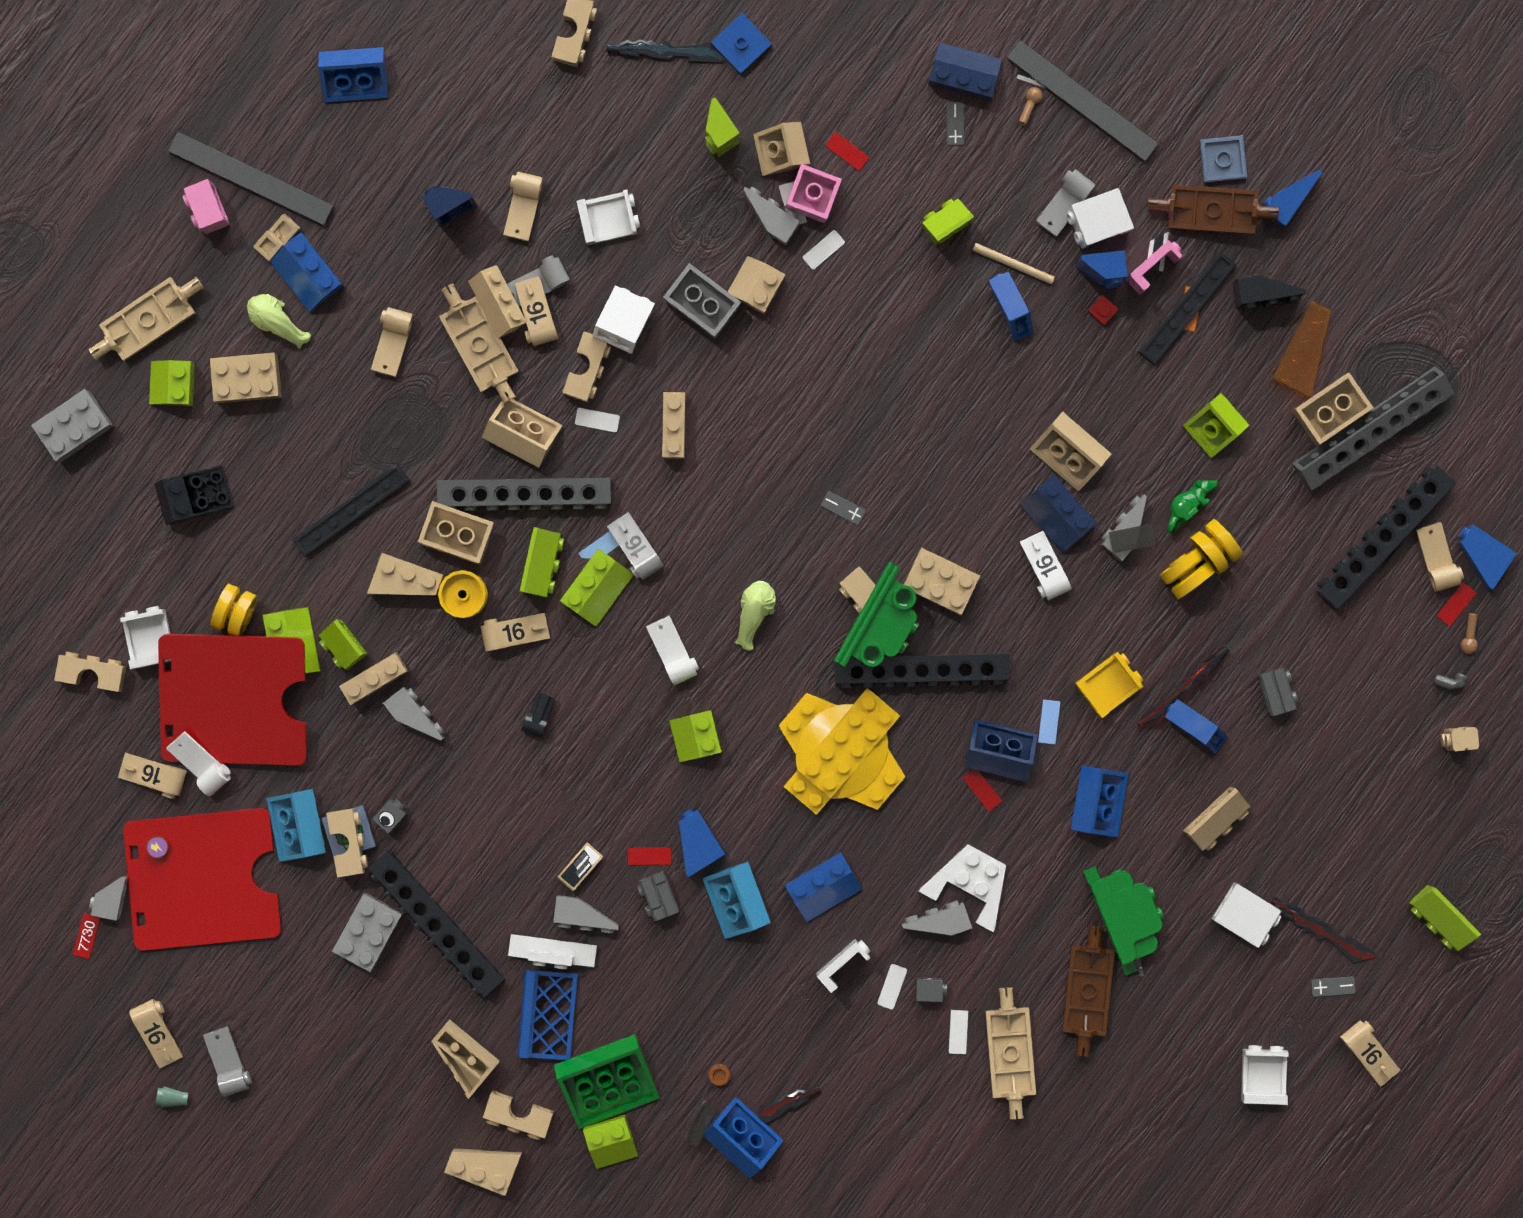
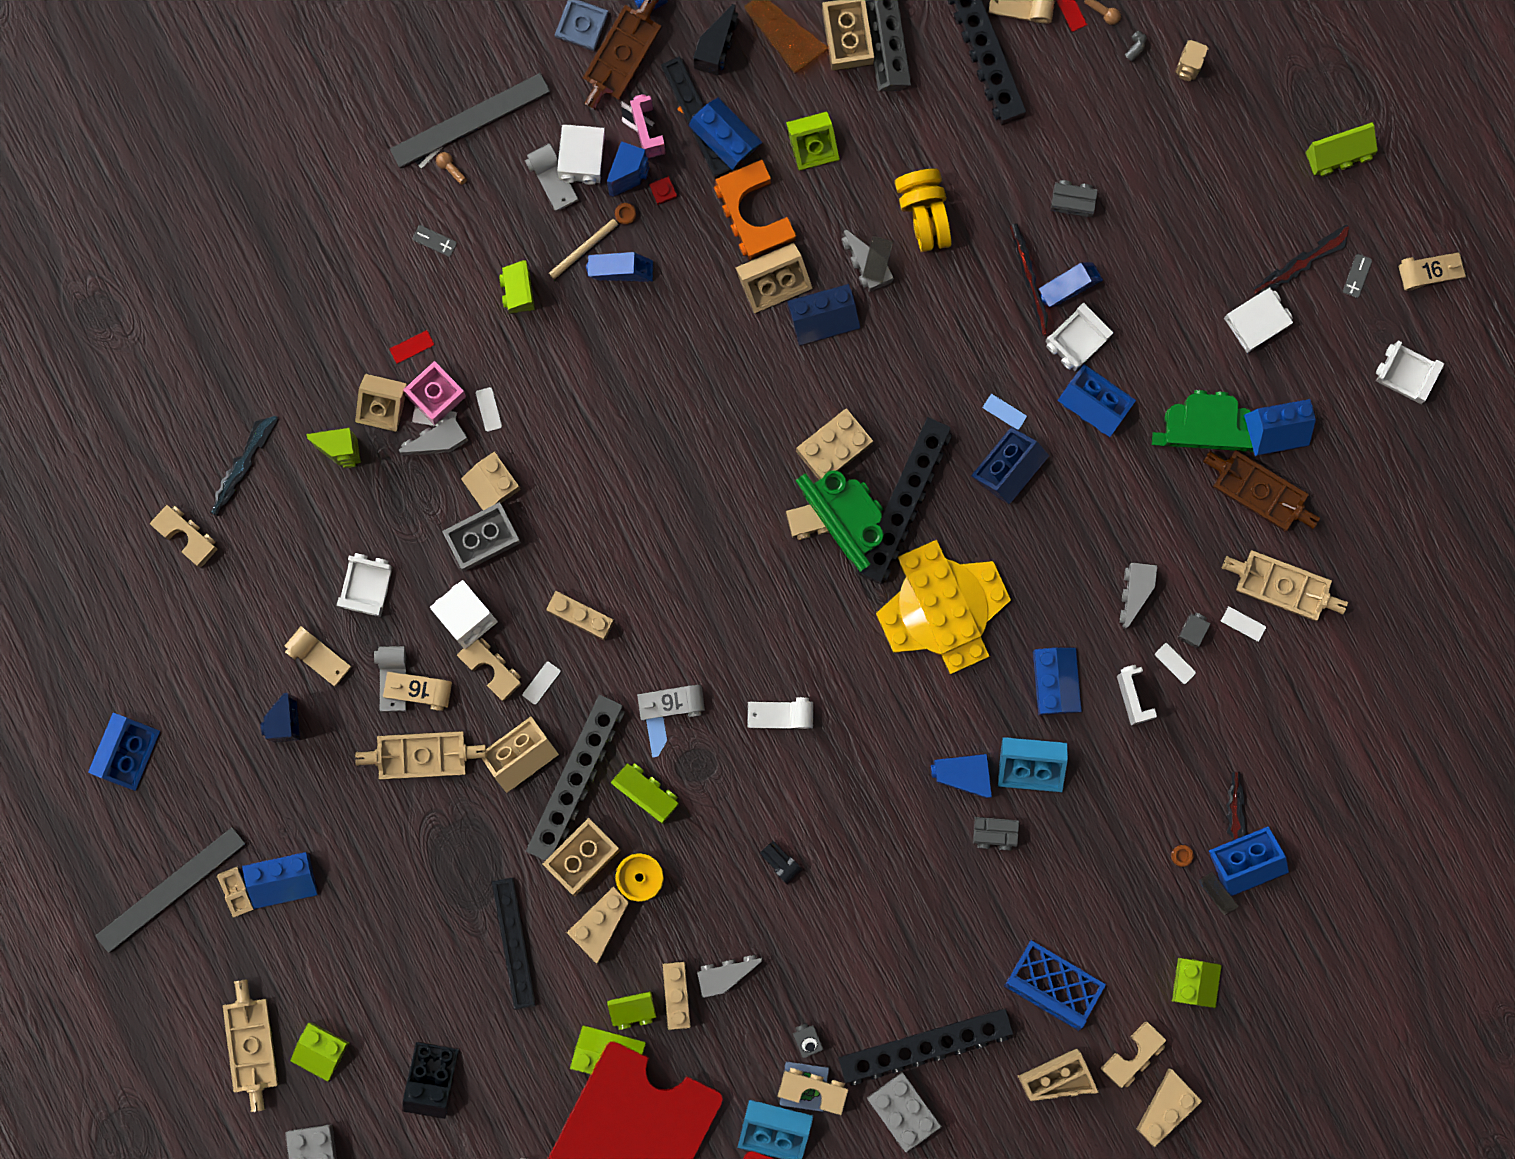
camera: 65 degrees left, 5 degrees down
(206, 207) = (172, 940): bright pink brick -> none
(233, 610) = (557, 1090): yellow wheel -> none
(245, 378) = (348, 981): tan brick -> none
(267, 315) = (299, 932): yellowish green hair -> none
(392, 341) = (380, 832): tan door -> none
(497, 301) = (391, 720): tan brick -> none
(514, 632) = (695, 848): tan door -> none
(552, 951) = (1001, 950): white bracket -> none
(578, 912) = (974, 914): light grey slope -> none
(579, 866) = (935, 891): slope -> none
(597, 587) = (691, 754): lime slope -> none
(606, 1081) = (1140, 960): green slope -> none
(649, 856) = (955, 824): red sticker -> none
(695, 736) = (867, 730): lime slope -> none
(741, 43) = (269, 393): blue plate -> none
(756, 604) = (775, 617): yellowish green hair -> none
(843, 507) = (726, 501): dark grey sticker -> none
(965, 72) = (393, 209): dark blue slope -> none
(975, 874) = (1111, 540): white wing -> none
(982, 789) = (1036, 499): red sticker -> none
(1046, 566) = (865, 347): white door -> none
(1064, 286) = (625, 214): none -> dark orange tile
(1097, 415) = (754, 240): none -> orange arch
(1109, 684) = (996, 342): yellow panel -> none
(1149, 757) = (1078, 337): none -> white panel
(1155, 982) = (1281, 427): none -> blue slope
(1183, 341) = (724, 133): none -> blue slope
(1186, 504) = (869, 199): green animal -> none
(1217, 819) = (1161, 304): tan slope -> none

